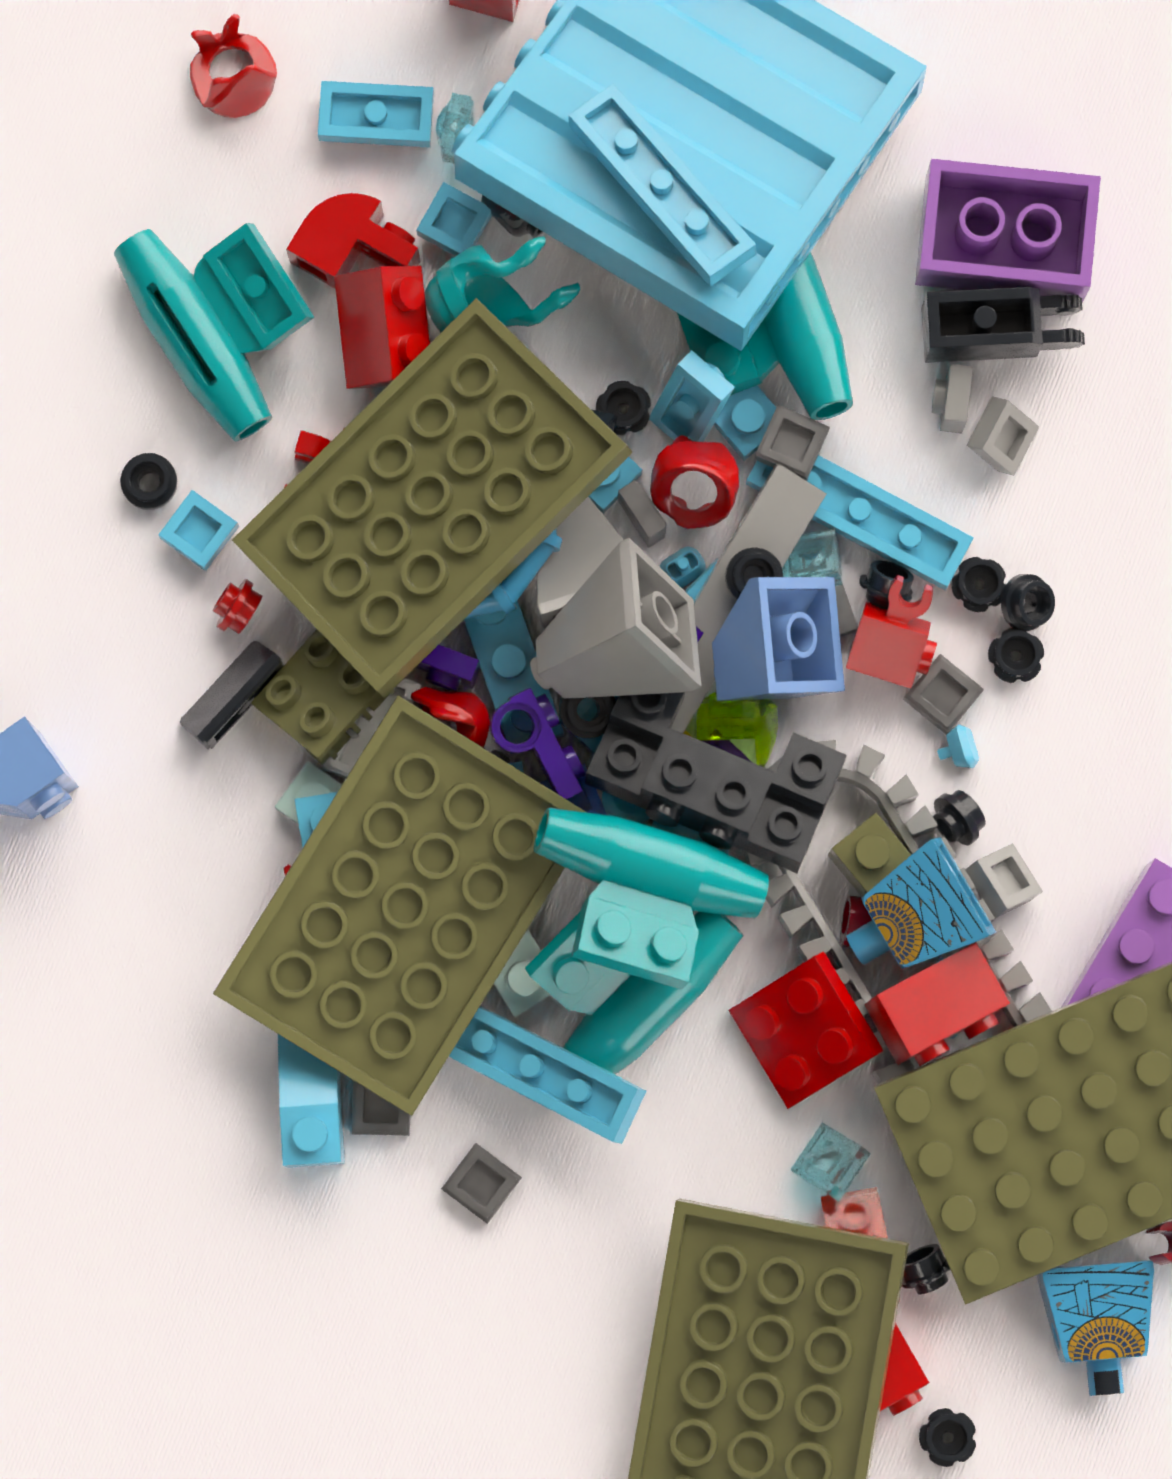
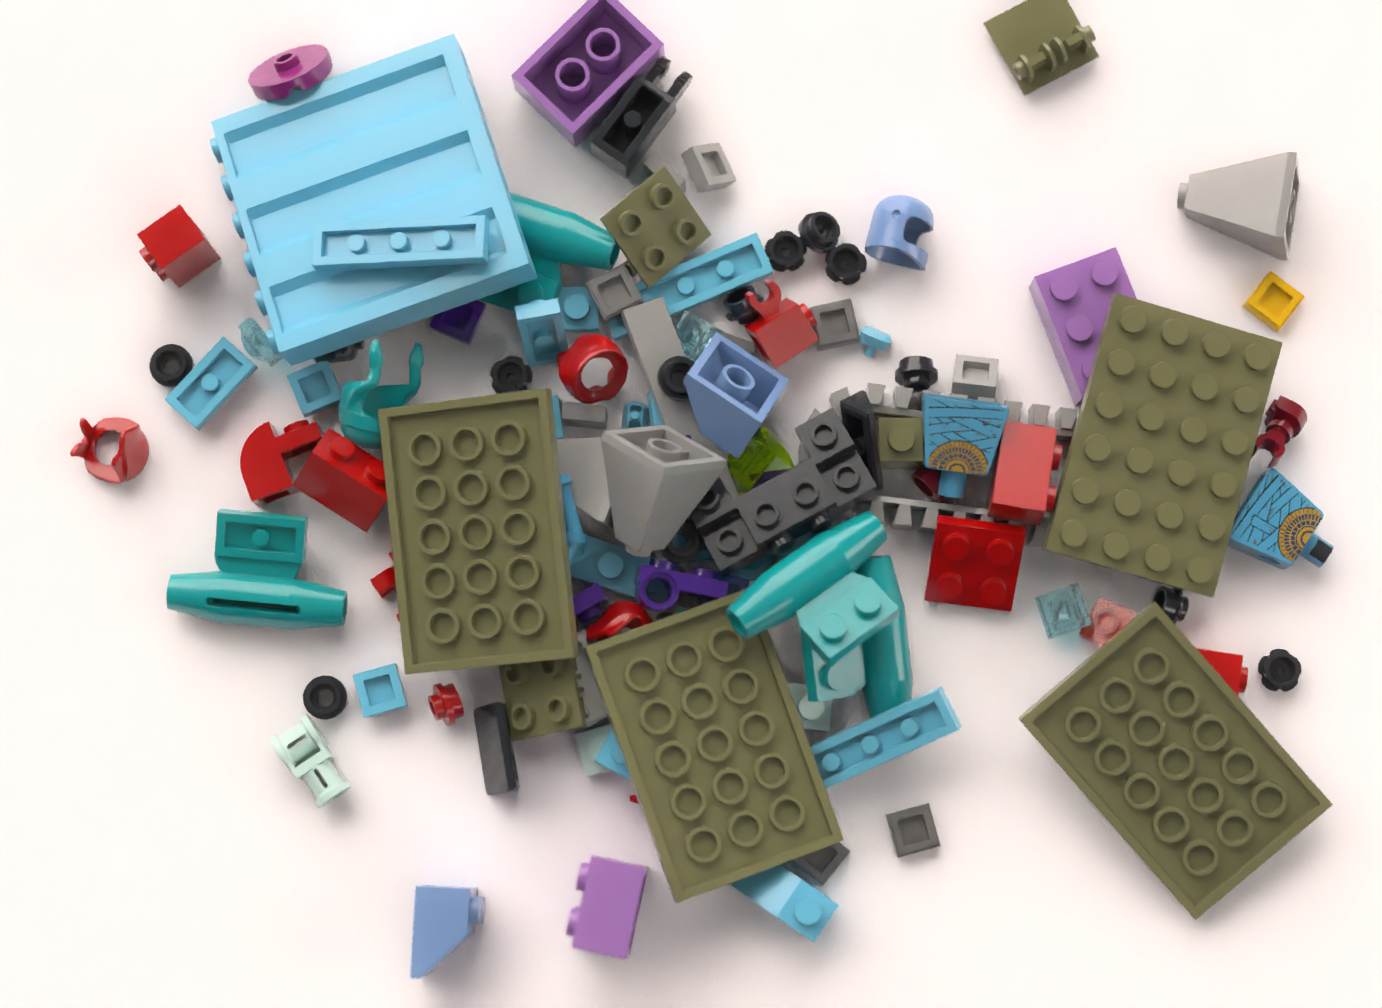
camera: 50 degrees left, 0 degrees up
(75, 511) = (310, 757): none -> light aqua connector
(156, 926) = (608, 906): none -> medium lavender brick
(361, 44) = (162, 357): none -> black plate
(639, 312) = (460, 321): none -> dark purple tile
(846, 804) = (860, 424): none -> black slope
(893, 429) = (655, 227): none -> olive hinge
(1085, 666) = (887, 237): none -> medium blue helmet

